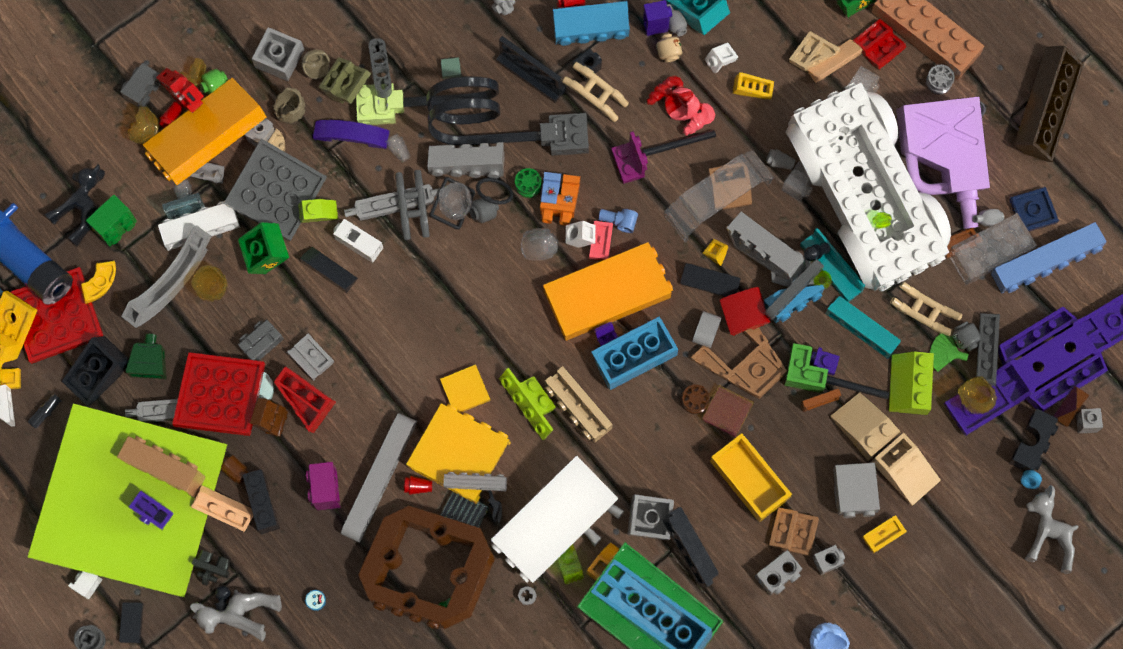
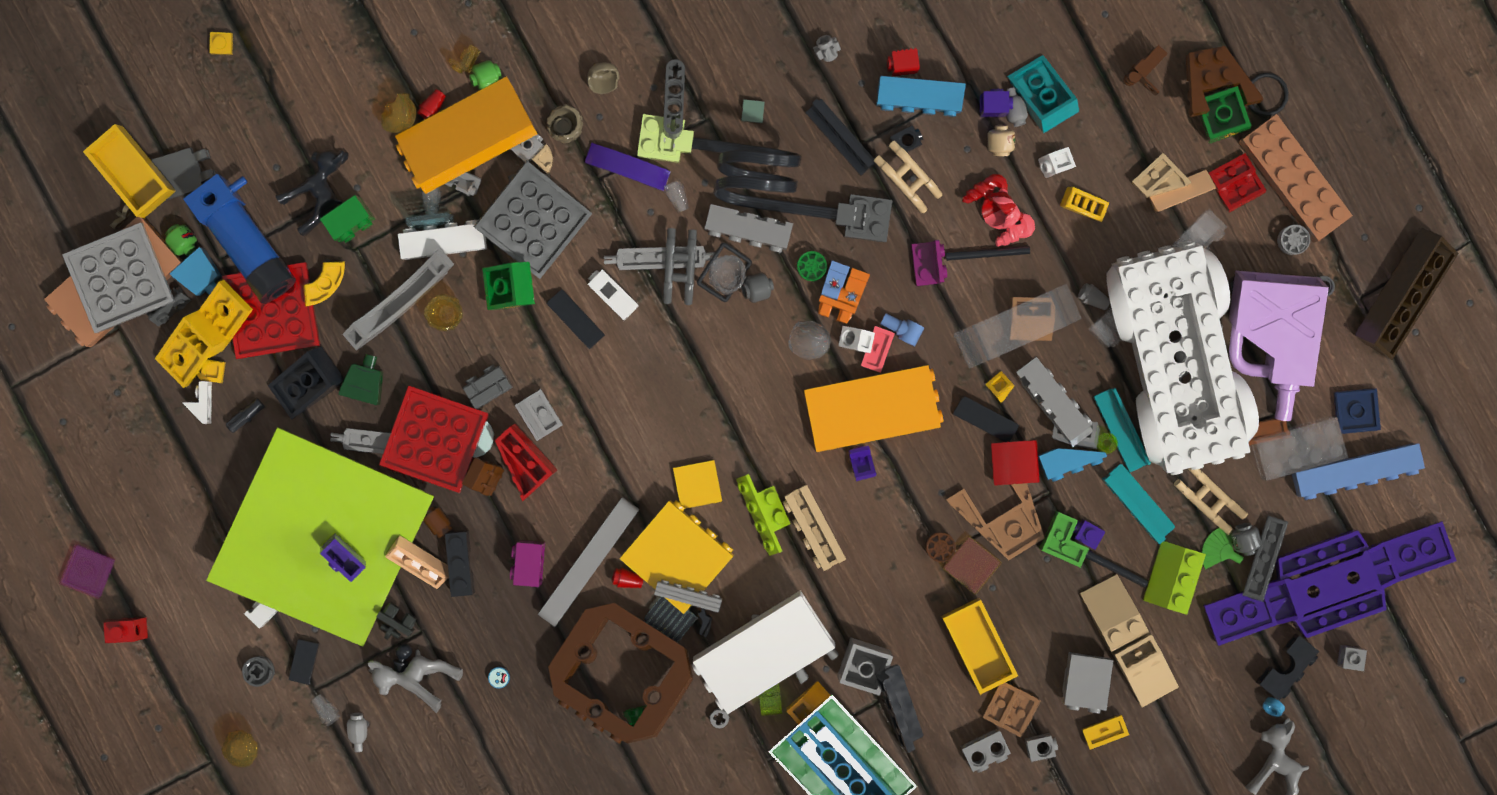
camera: 15 degrees right, 15 degrees up
(140, 86) = (403, 62): dark grey brick -> none
(162, 466) = (360, 513): medium nougat wedge -> none
(181, 89) = (447, 82): red piece -> none
(278, 54) = (562, 58): light grey brick -> none
(317, 210) = (575, 253): lime slope -> none
(344, 81) = (631, 108): olive brick -> none
(491, 200) = (769, 252): black piece -> none
(635, 353) = (887, 485): dark azure slope -> none
(706, 329) = (970, 474): light grey beam -> none
(794, 289) = (1073, 456): dark grey beam -> none
(816, 251) = (1107, 417): black pin -> none
(820, 400) = (1073, 576): dark orange tile -> none
(882, 220) = (1187, 399): clear neon green plate -> none
(977, 395) = (1240, 611): clear yellow hair -> none
(989, 217) = (1305, 412): light grey plant -> none
(1071, 406) = (1337, 639): reddish brown slope -> none

